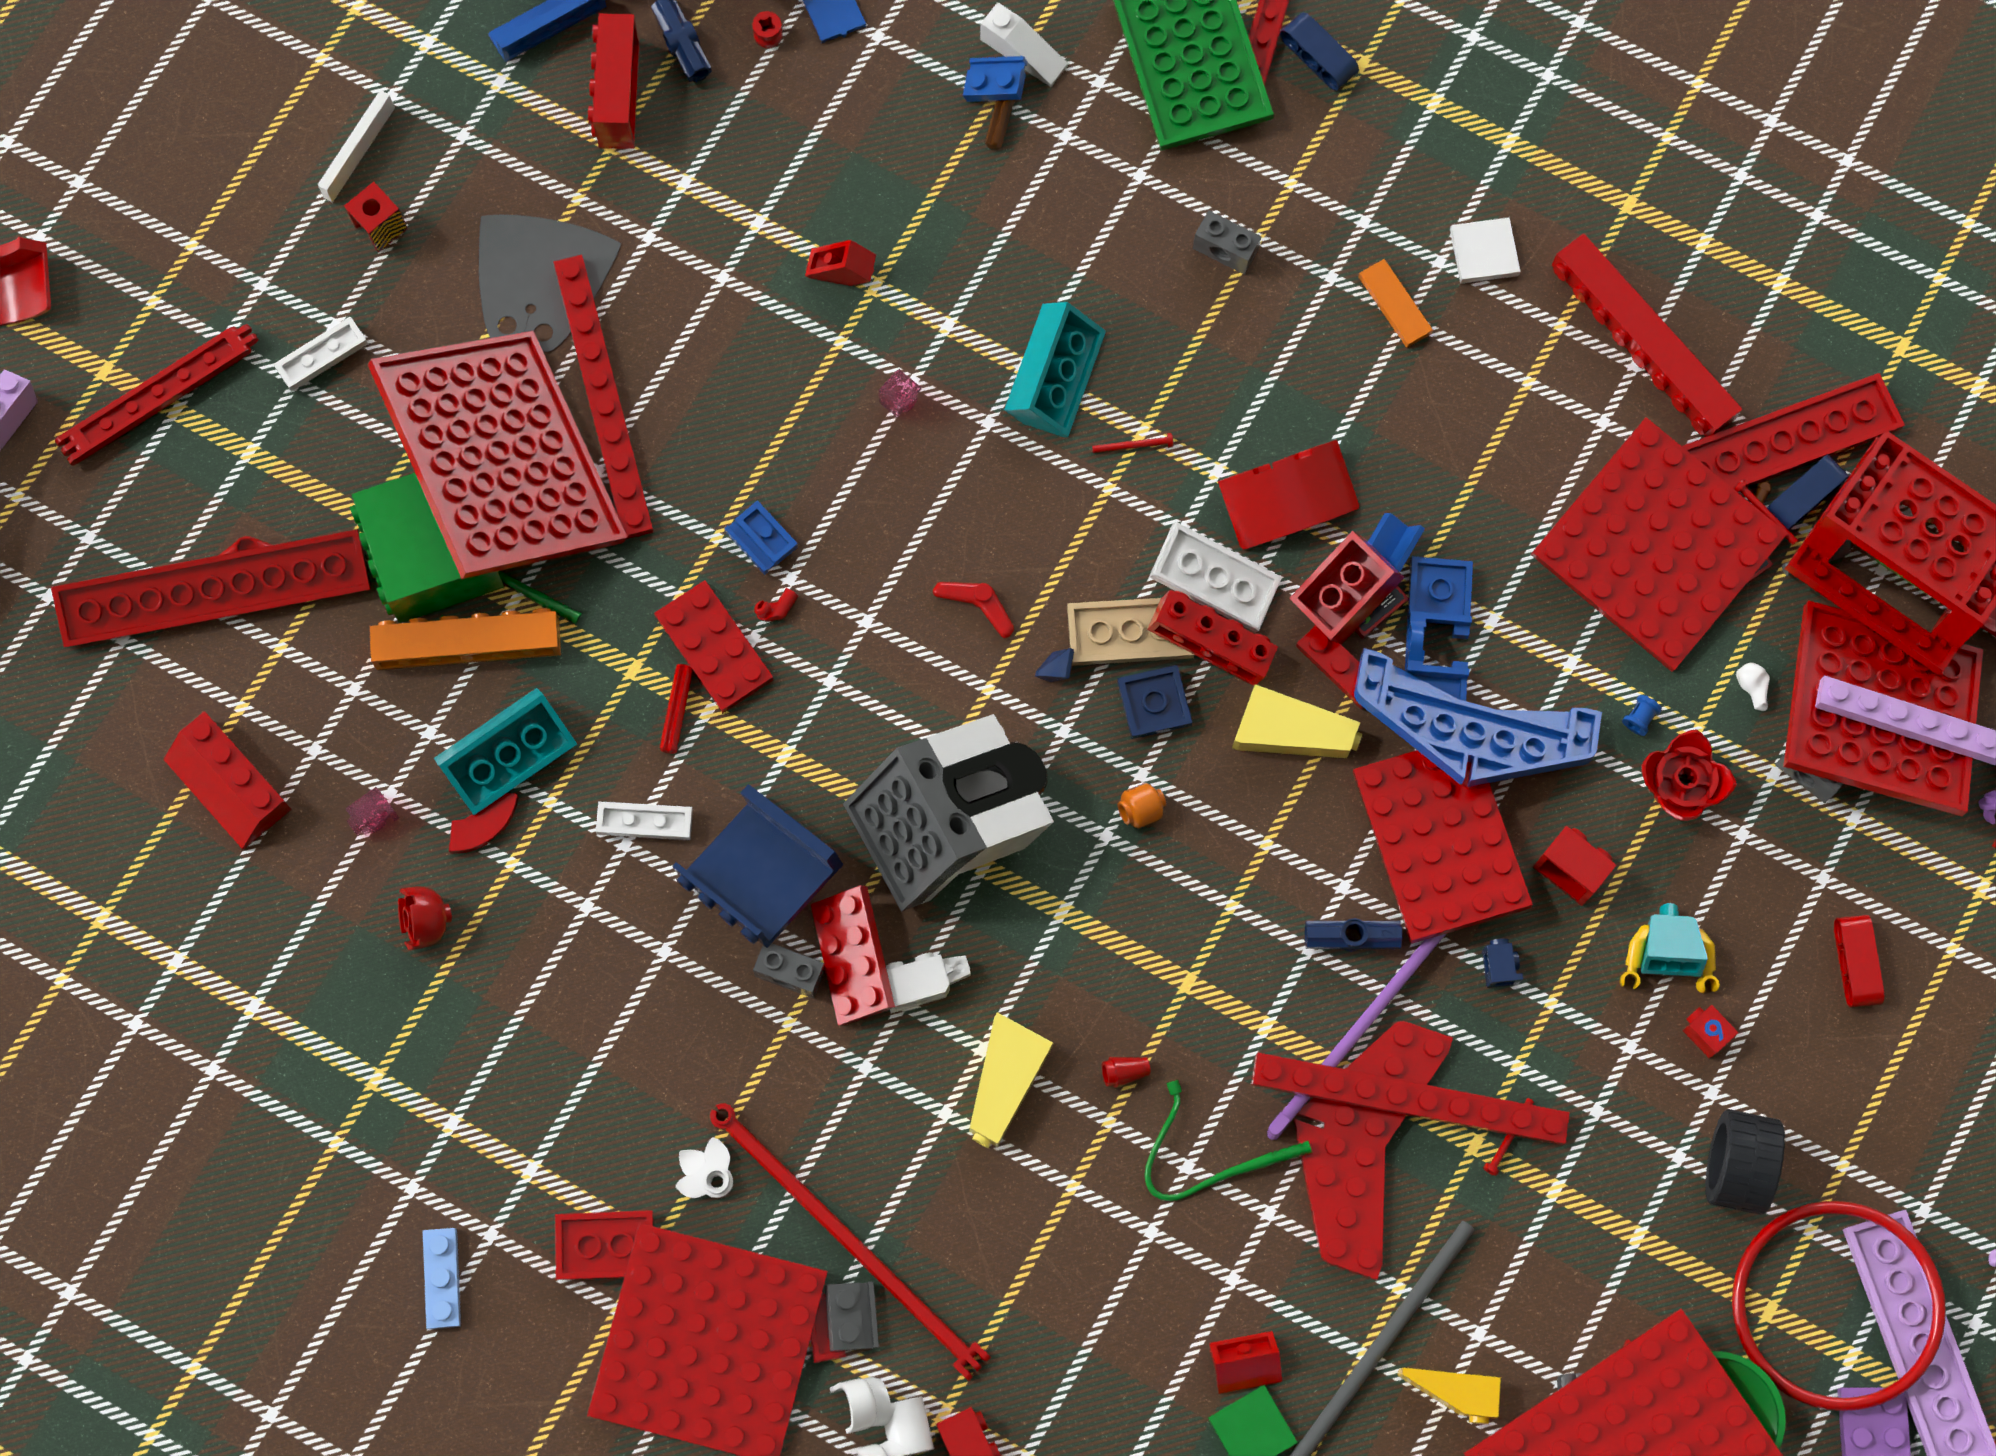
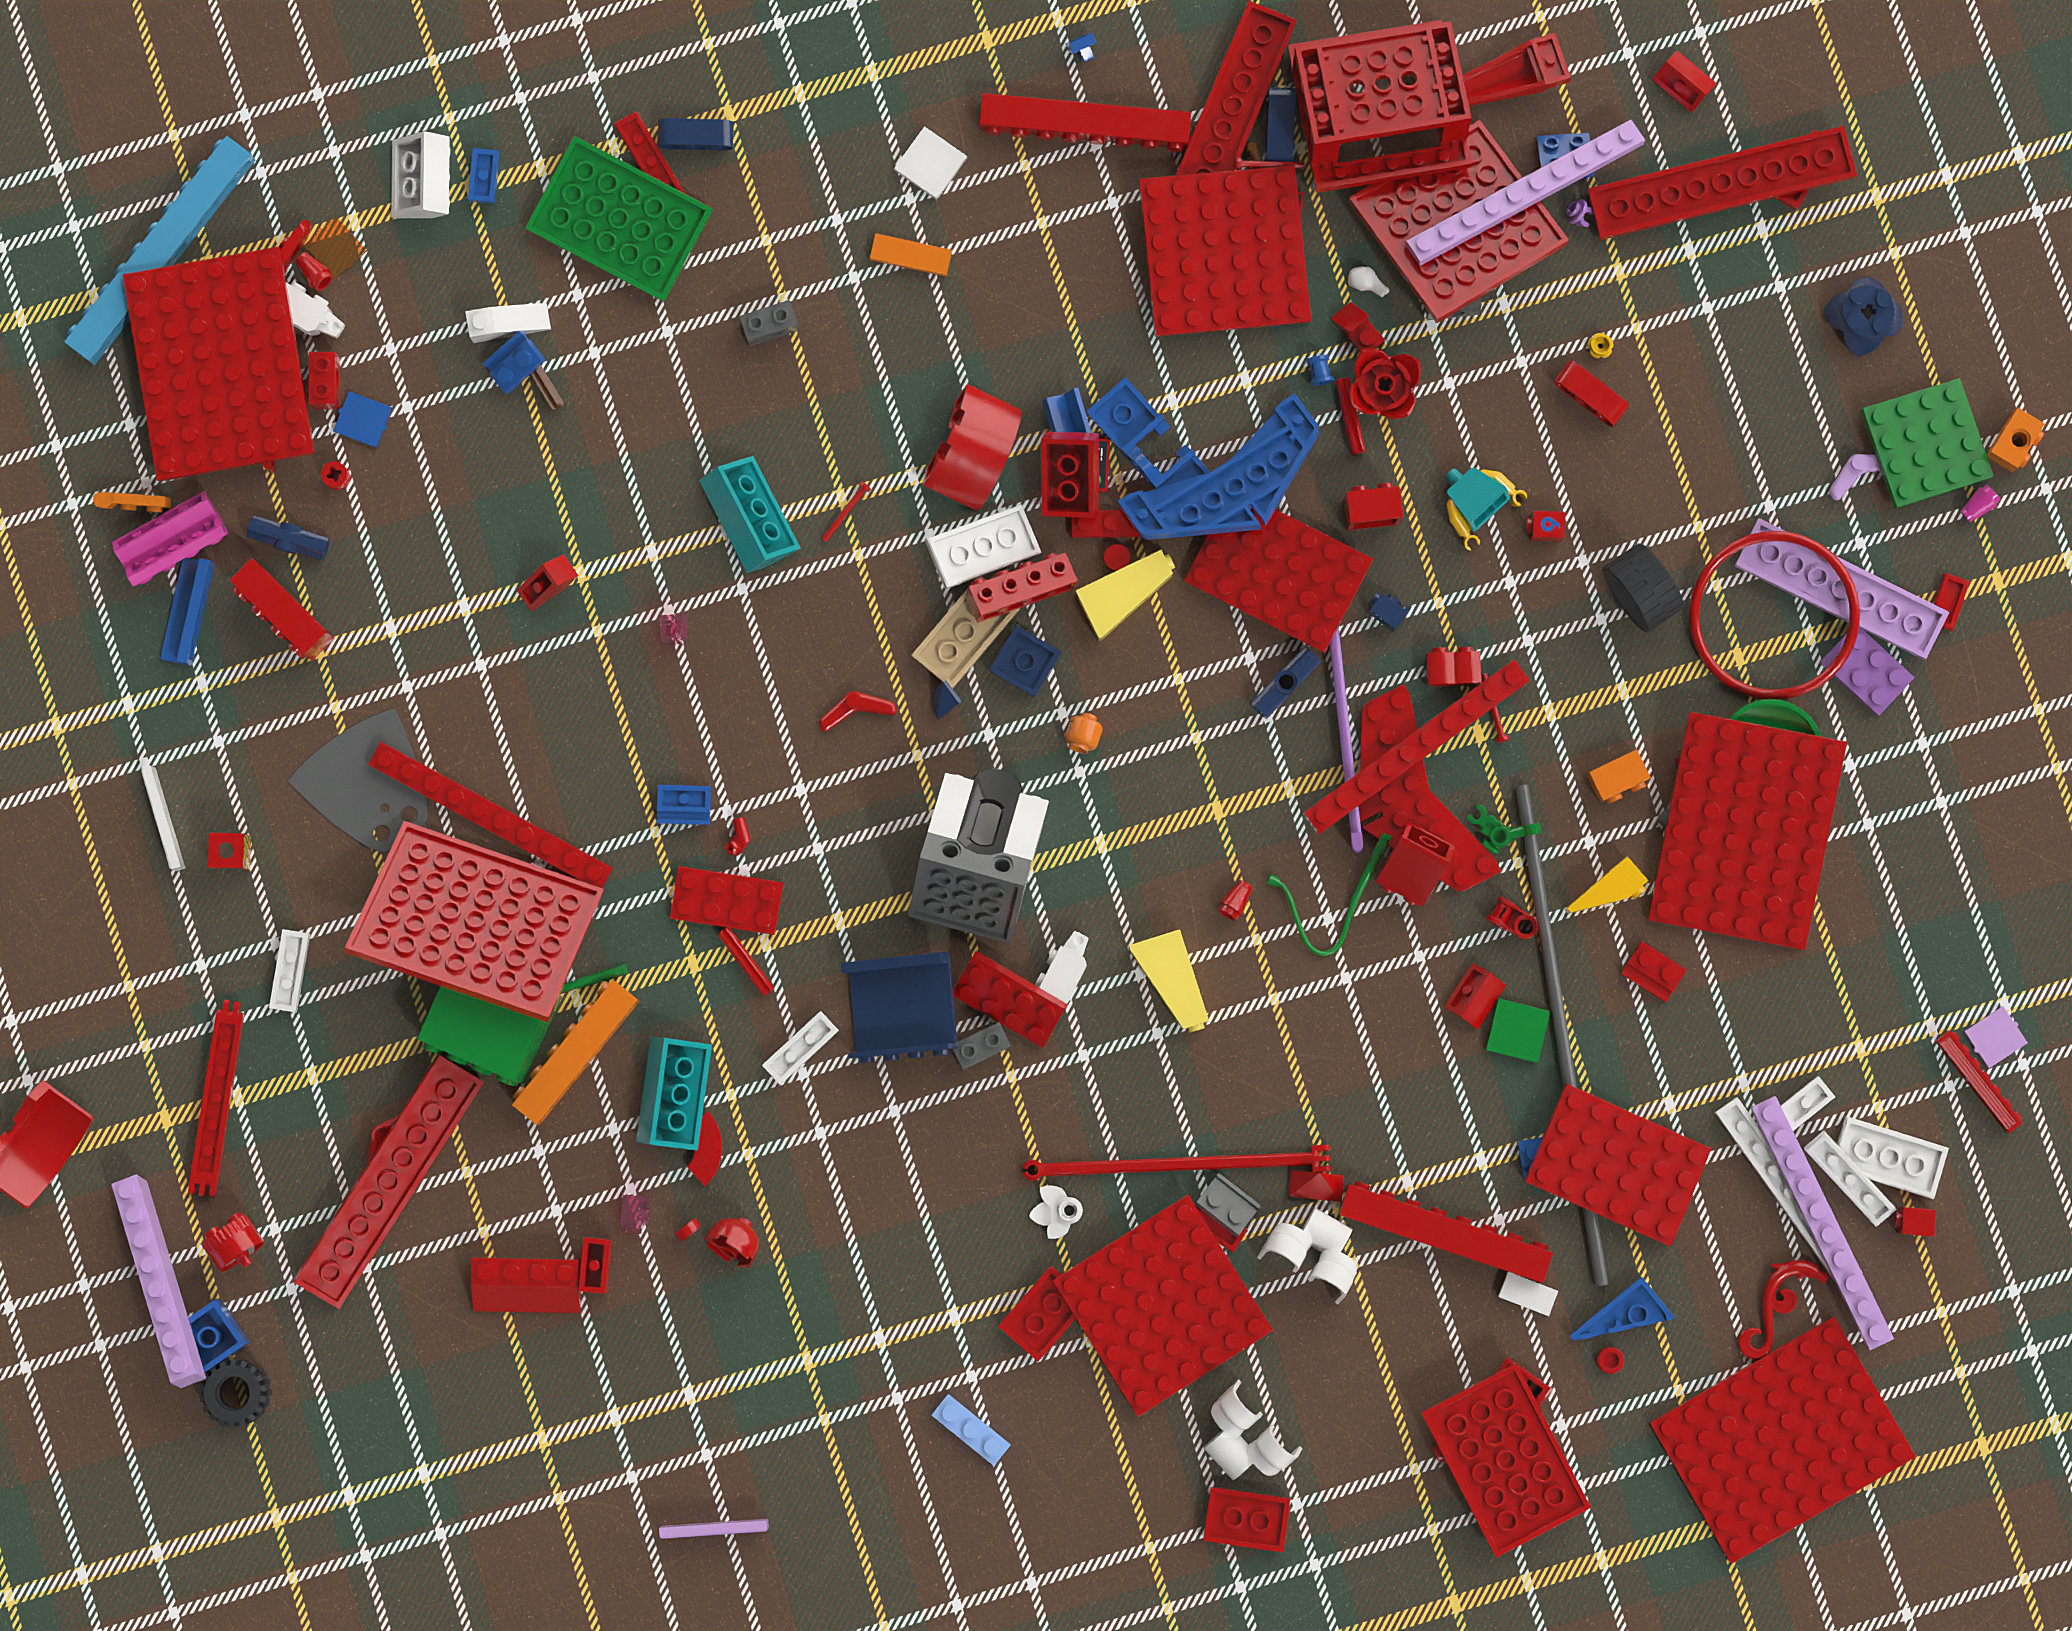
camera: 45 degrees left, 10 degrees up
(41, 509) = (232, 1243): none -> red piece
(149, 1134) = (713, 1528): none -> lavender tile
(293, 820) = (595, 1265): none -> red brick
(397, 870) = (687, 1229): none -> red tile
(943, 1381) = (1316, 1186): none -> red slope
(1307, 1193) = (1415, 864): none -> red slope
(1317, 694) = (1116, 557): none -> red tile
(1343, 1328) = (1511, 918): none -> red piece
(1407, 1244) = (1500, 834): none -> green piece
(1508, 1066) = (1453, 668): none -> red brick
(1561, 1303) = (1619, 776): none -> orange brick
(1629, 778) = (1350, 417): none -> red axle
(1702, 277) = (1082, 46): none -> blue tile
(1708, 712) = (1357, 328): none -> red slope
(1914, 930) = (1600, 338): none -> yellow plate

